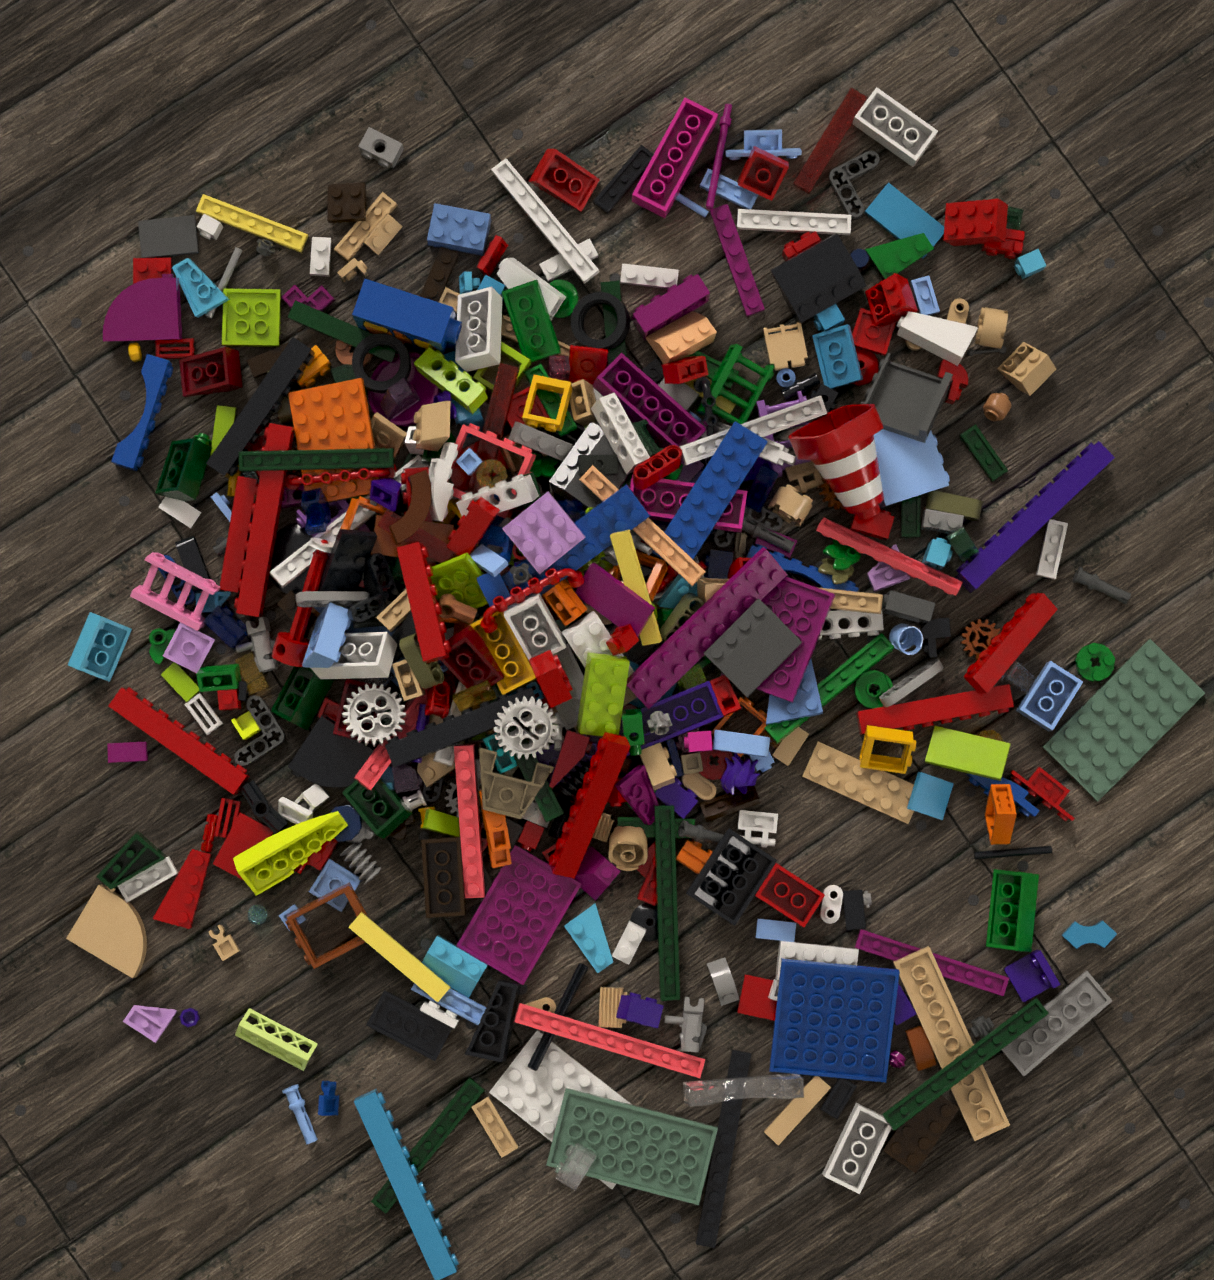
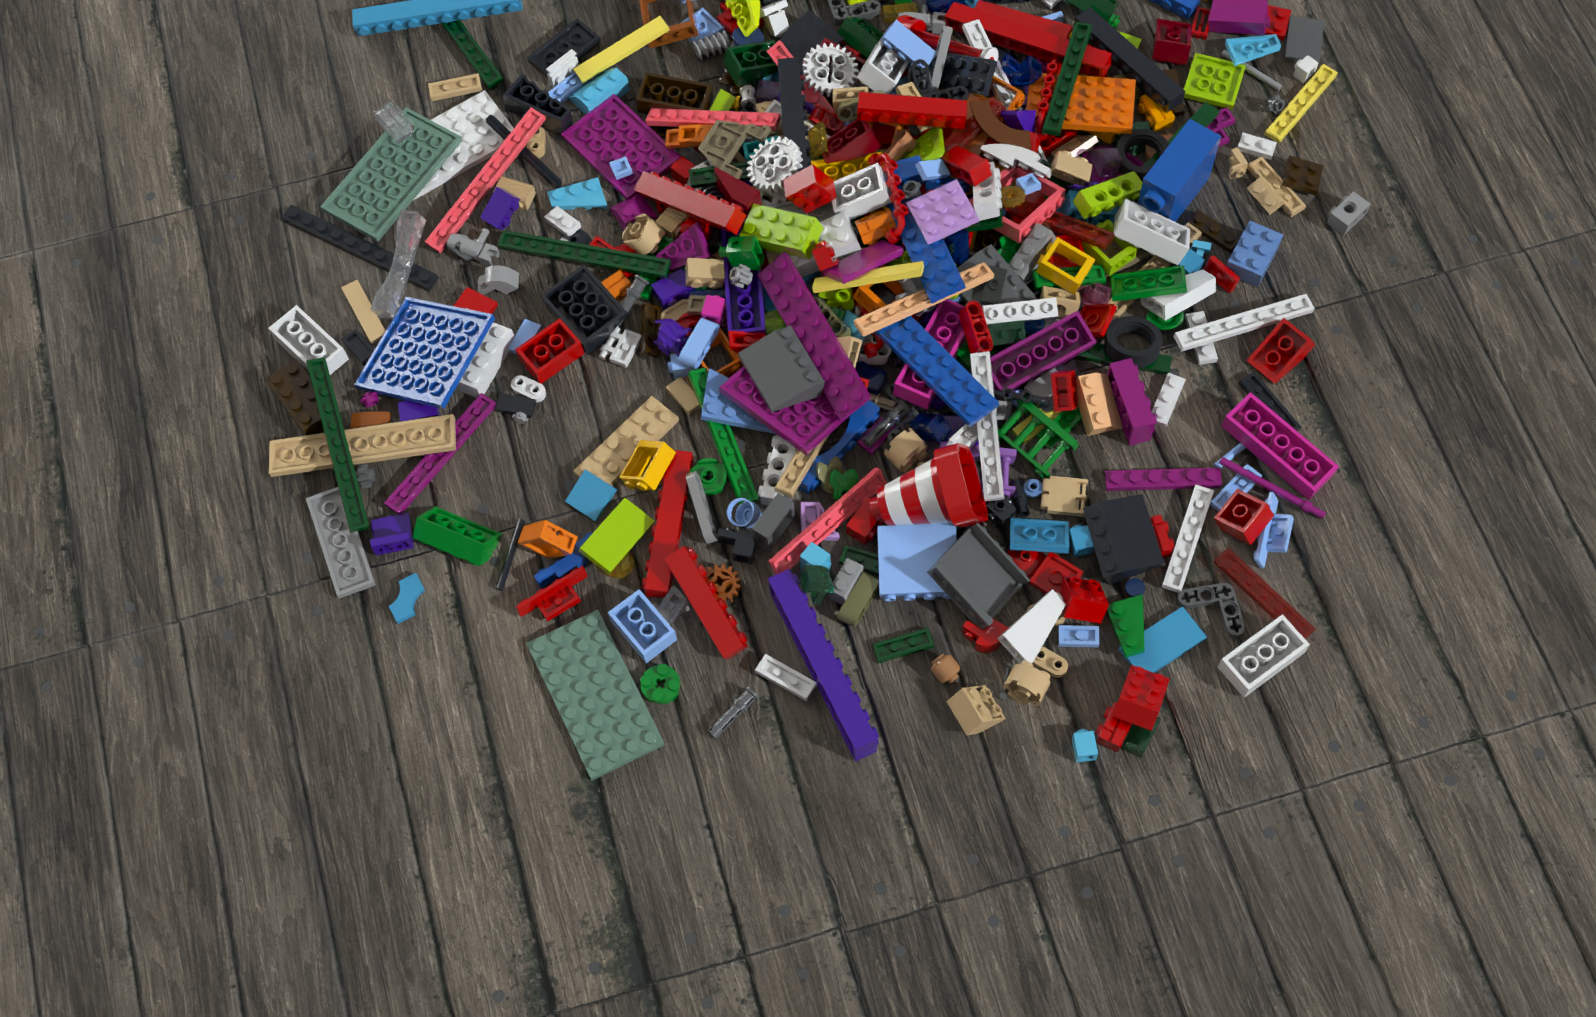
camera: 110 degrees right, 20 degrees down
(552, 901) = (621, 168): none -> light blue plate

